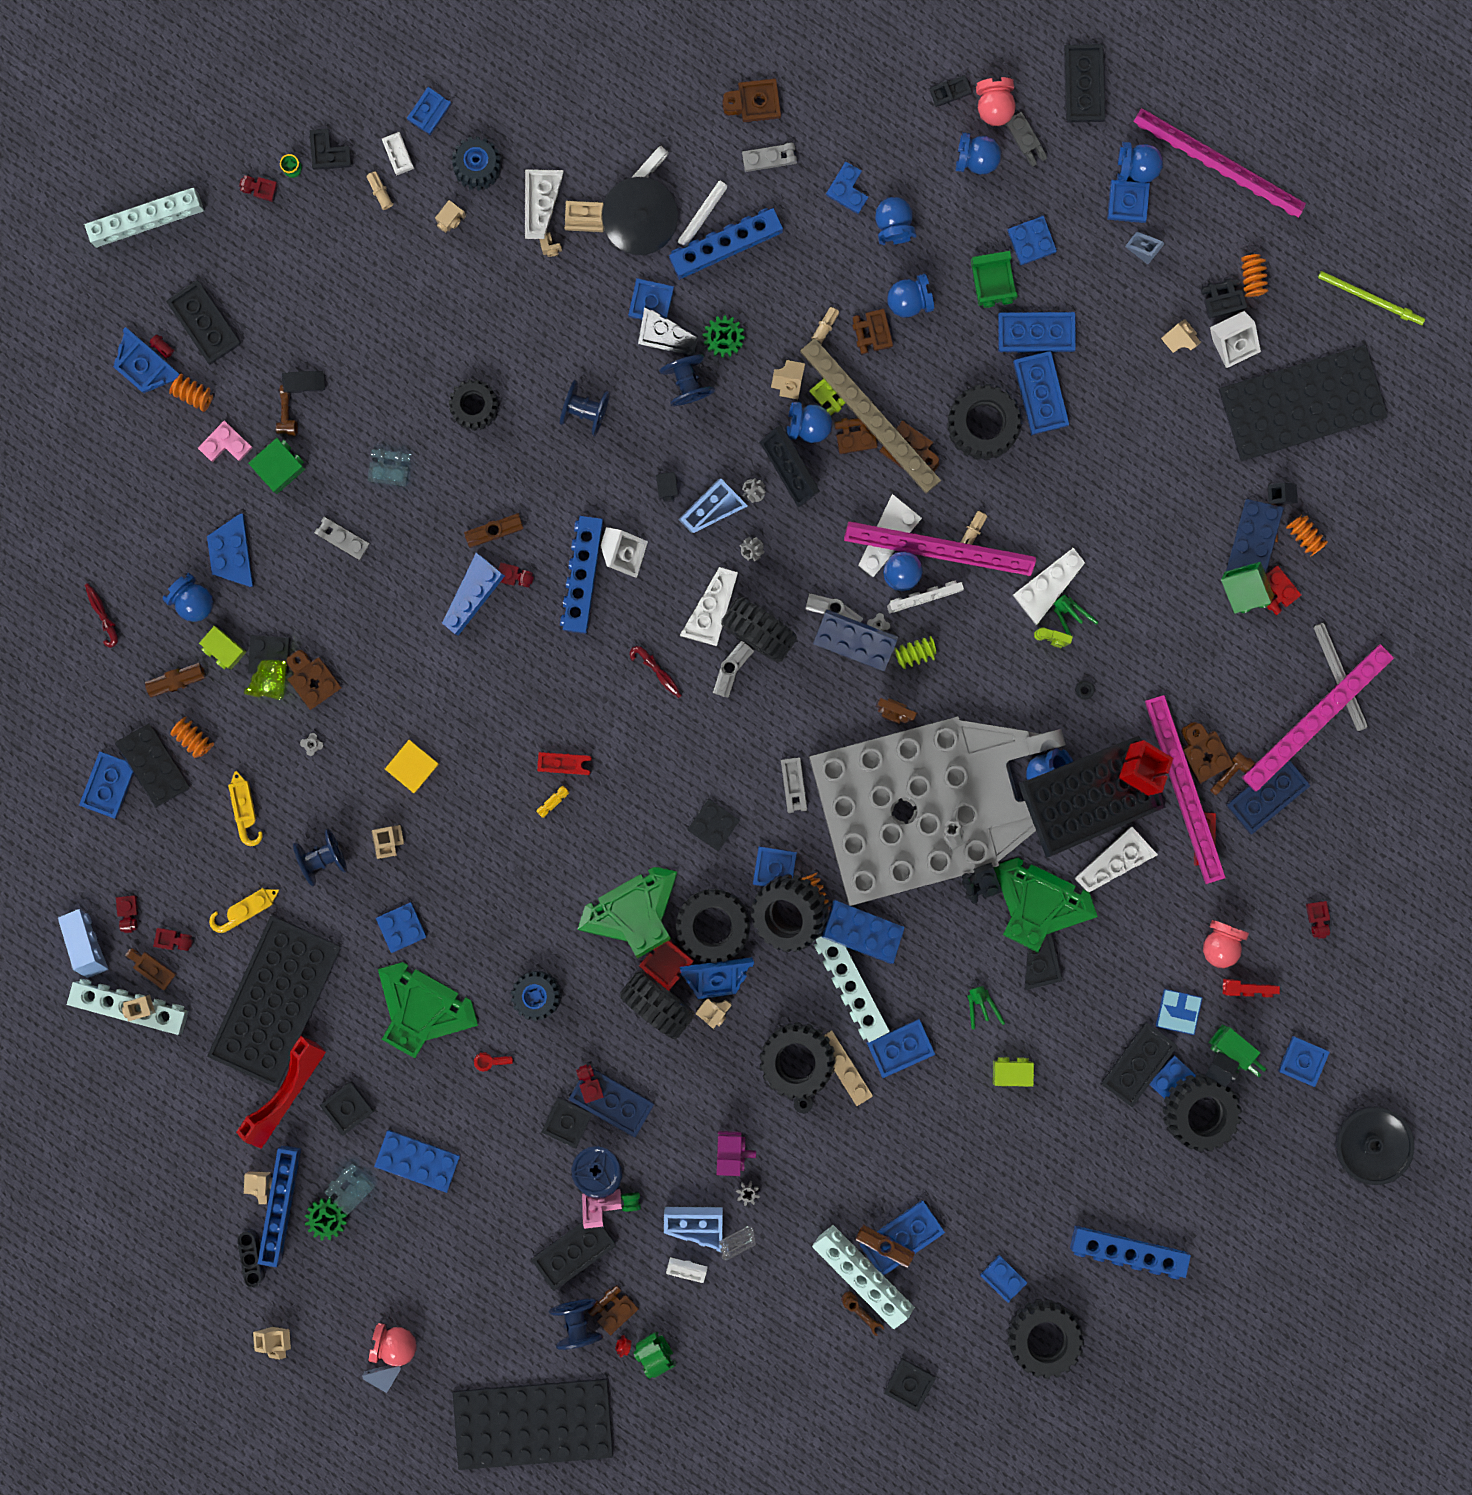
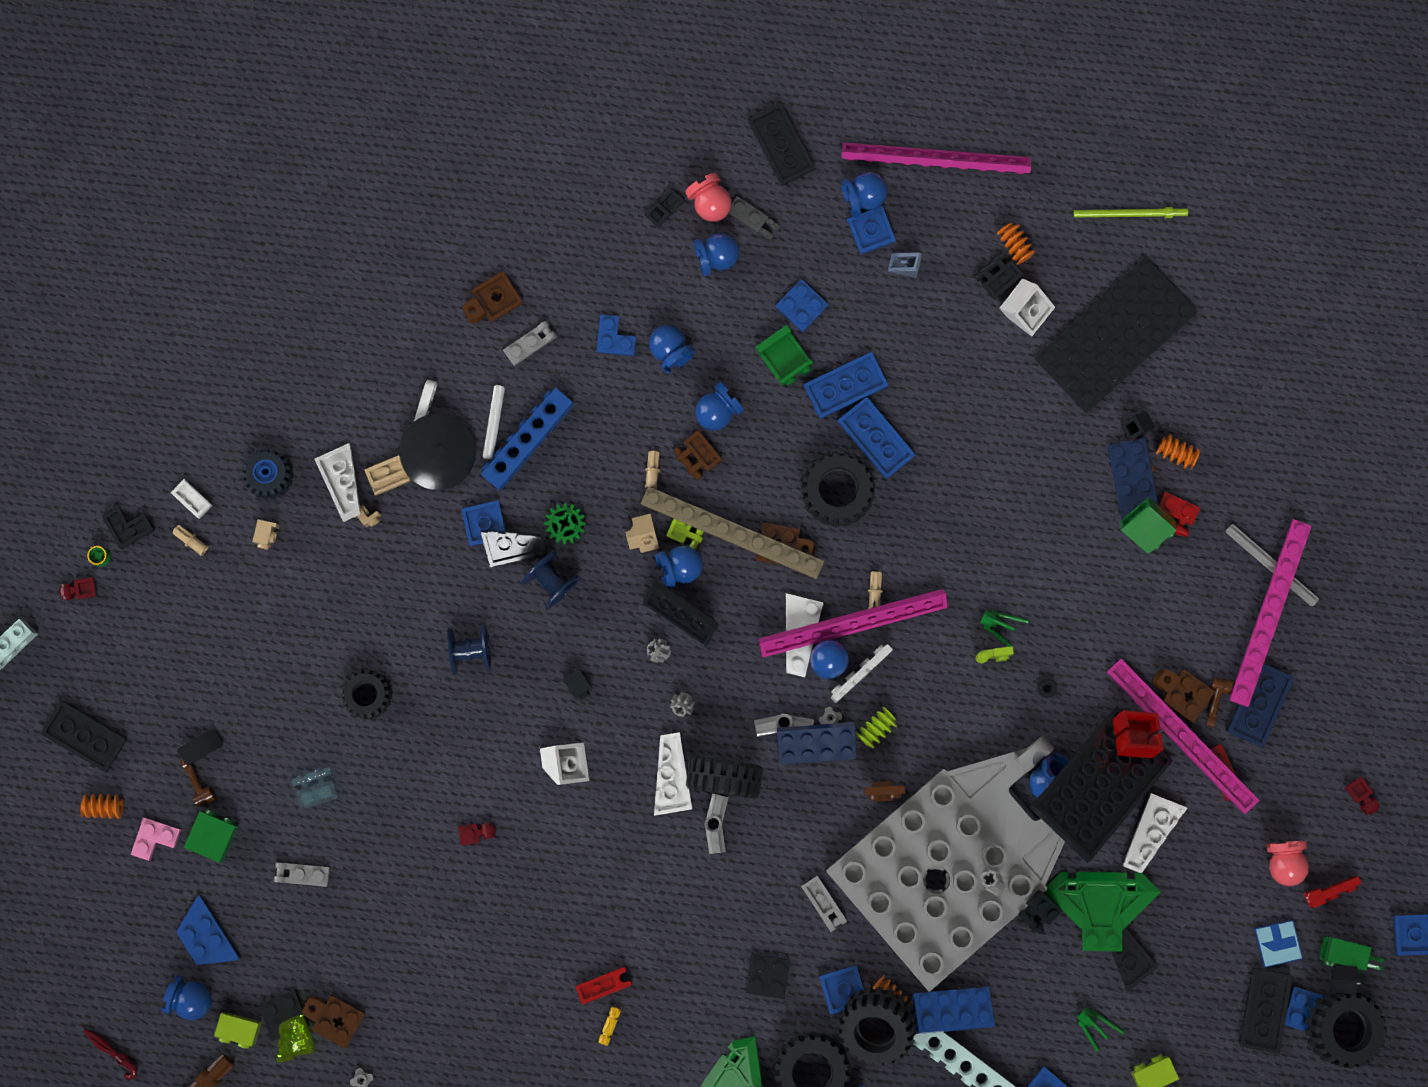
camera: 15 degrees left, 5 degrees down
(142, 364) = (44, 801): blue wing -> none
(158, 342) = (55, 776): dark red pin -> none
(411, 766) = (464, 1055): yellow tile -> none
(429, 111) = (202, 447): blue plate -> none
(473, 592) = (446, 863): wing -> none
(481, 534) = (429, 810): reddish brown piece -> none
(583, 525) = (517, 757): blue brick -> none
(650, 661) = (638, 852): dark red piece -> none
(711, 507) = (627, 684): light blue wedge -> none
(854, 441) = (729, 561): reddish brown plate -> none
(1045, 588) = (966, 613): white wing -> none
(1181, 336) = (978, 328): tan brick -> none

